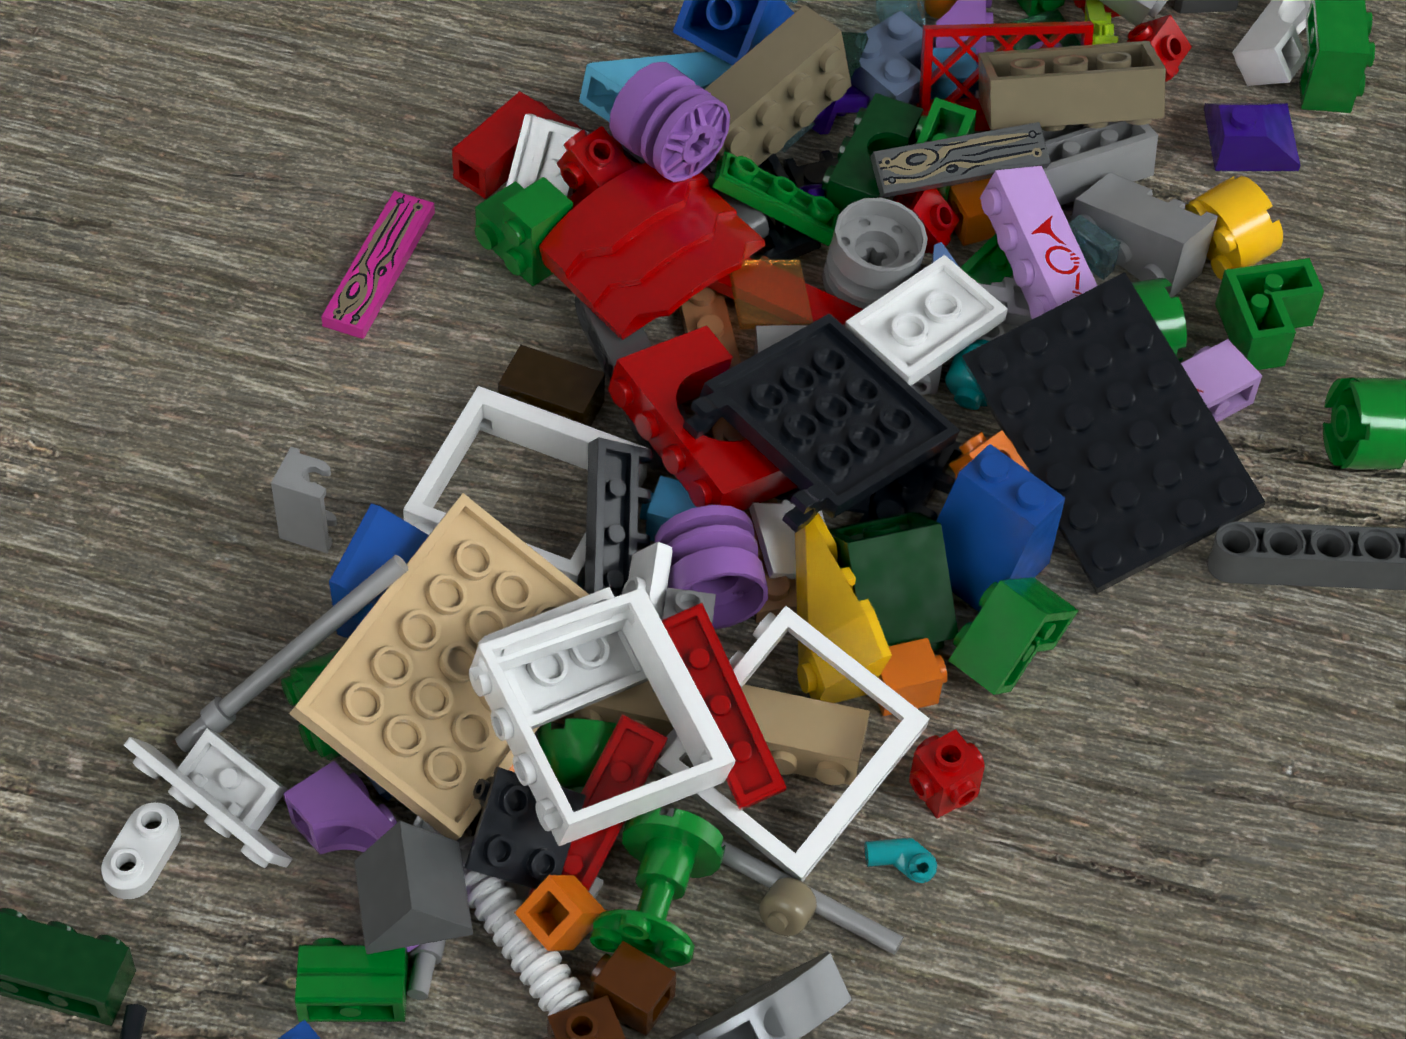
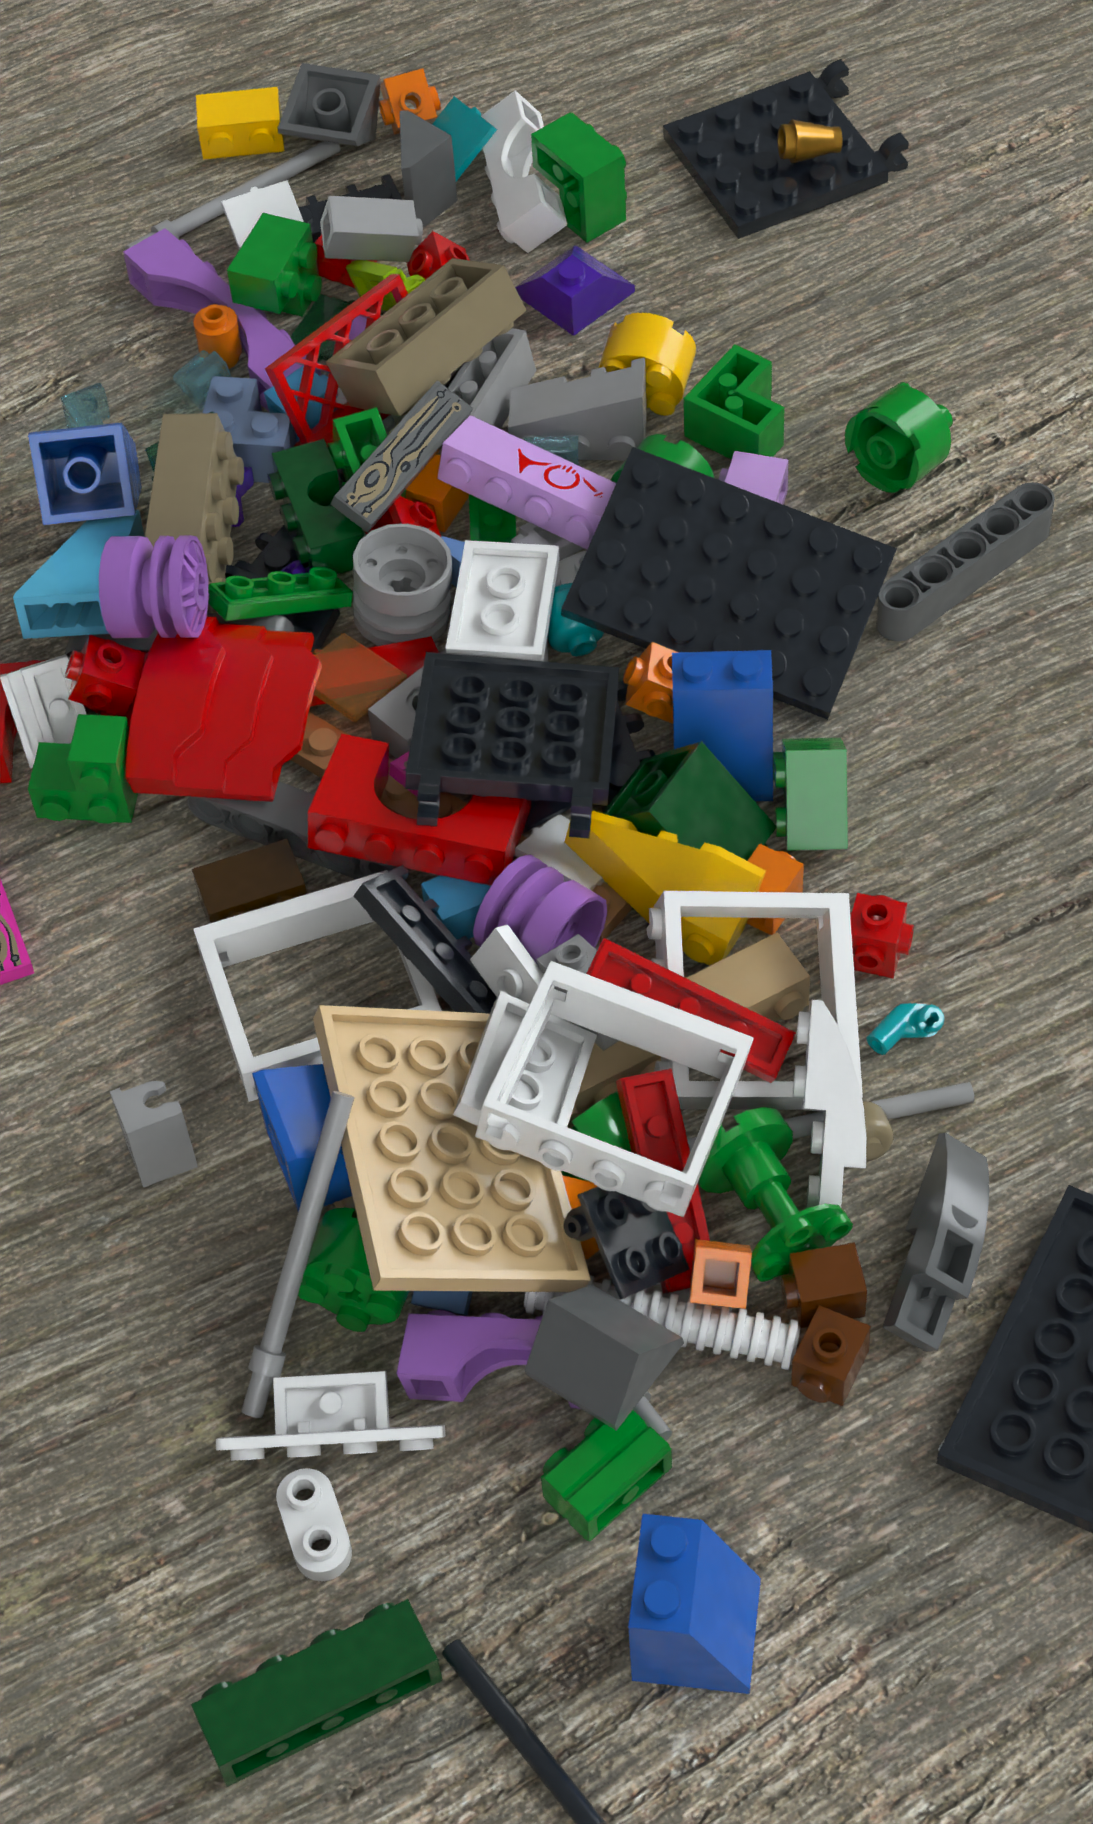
camera: 35 degrees left, 0 degrees up
(773, 849) = (829, 1086): none -> white slope

